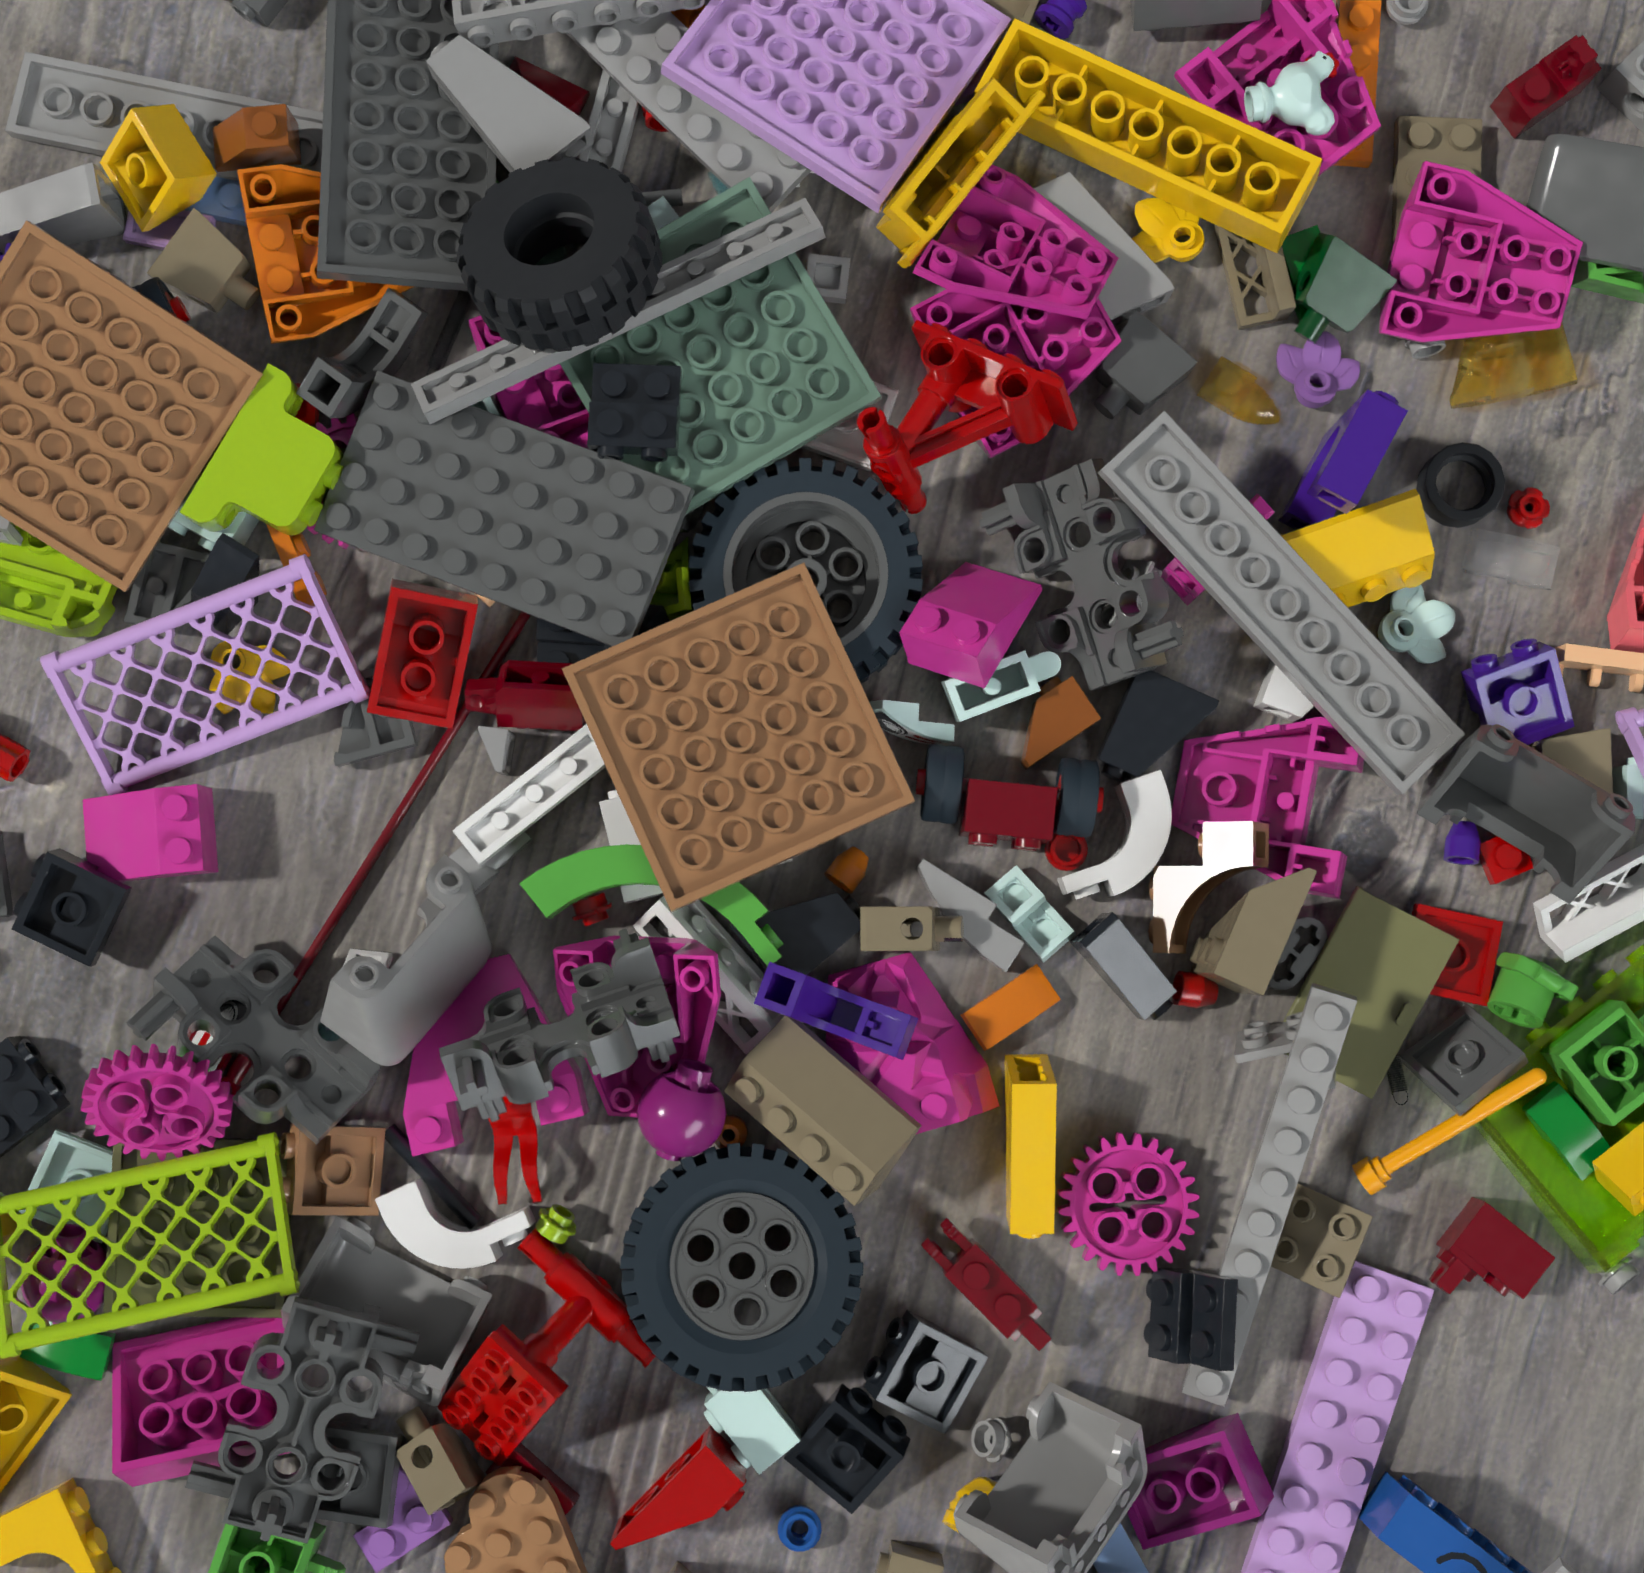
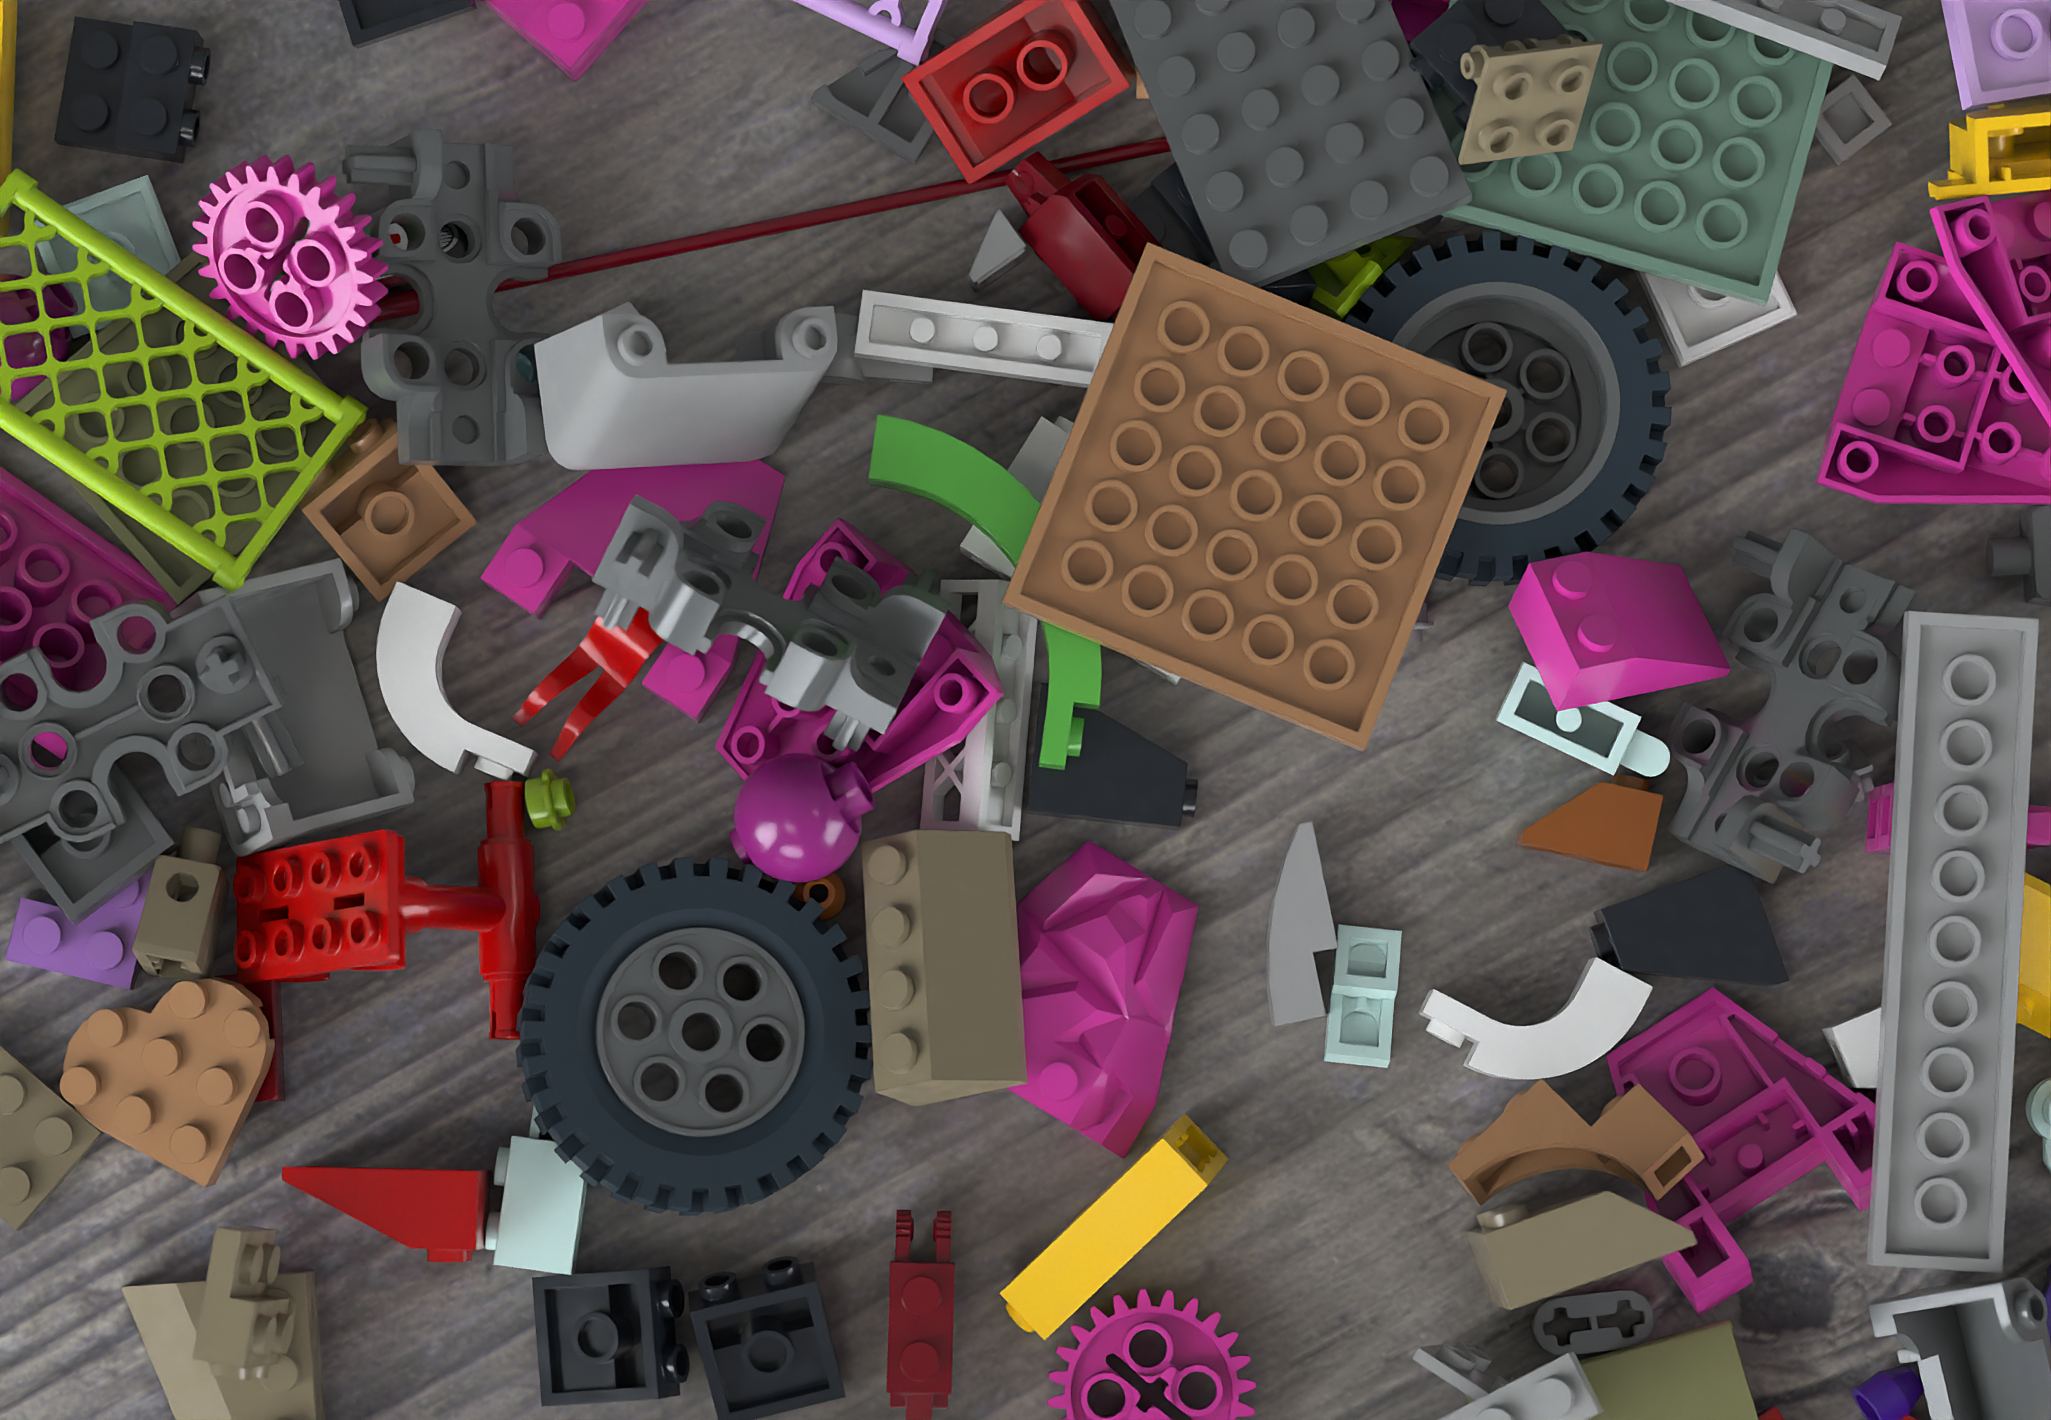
camera: 40 degrees right, 0 degrees up
(433, 1178) = (471, 622): black bar -> none
(591, 909) = (918, 519): red plate -> none
(669, 414) = (1527, 97): none -> dark tan hinge
(796, 1541) = (455, 1377): blue plate -> none
(836, 1010) = (1060, 878): dark purple arch -> none
(848, 869) = (1223, 754): orange hose -> none
(891, 928) = (1203, 857): dark tan torso -> none
(903, 721) = (1439, 657): light aqua slope -> none
(960, 377) = (1863, 367): red plate -> none
(1005, 809) = (1453, 863): brick -> none
(1010, 1007) = (1241, 1069): orange slope -> none
(1066, 852) = (1470, 969): red plate -> none
(1125, 966) = (1403, 1150): slope -> none
(1194, 990) = (1449, 1251): red hose -> none

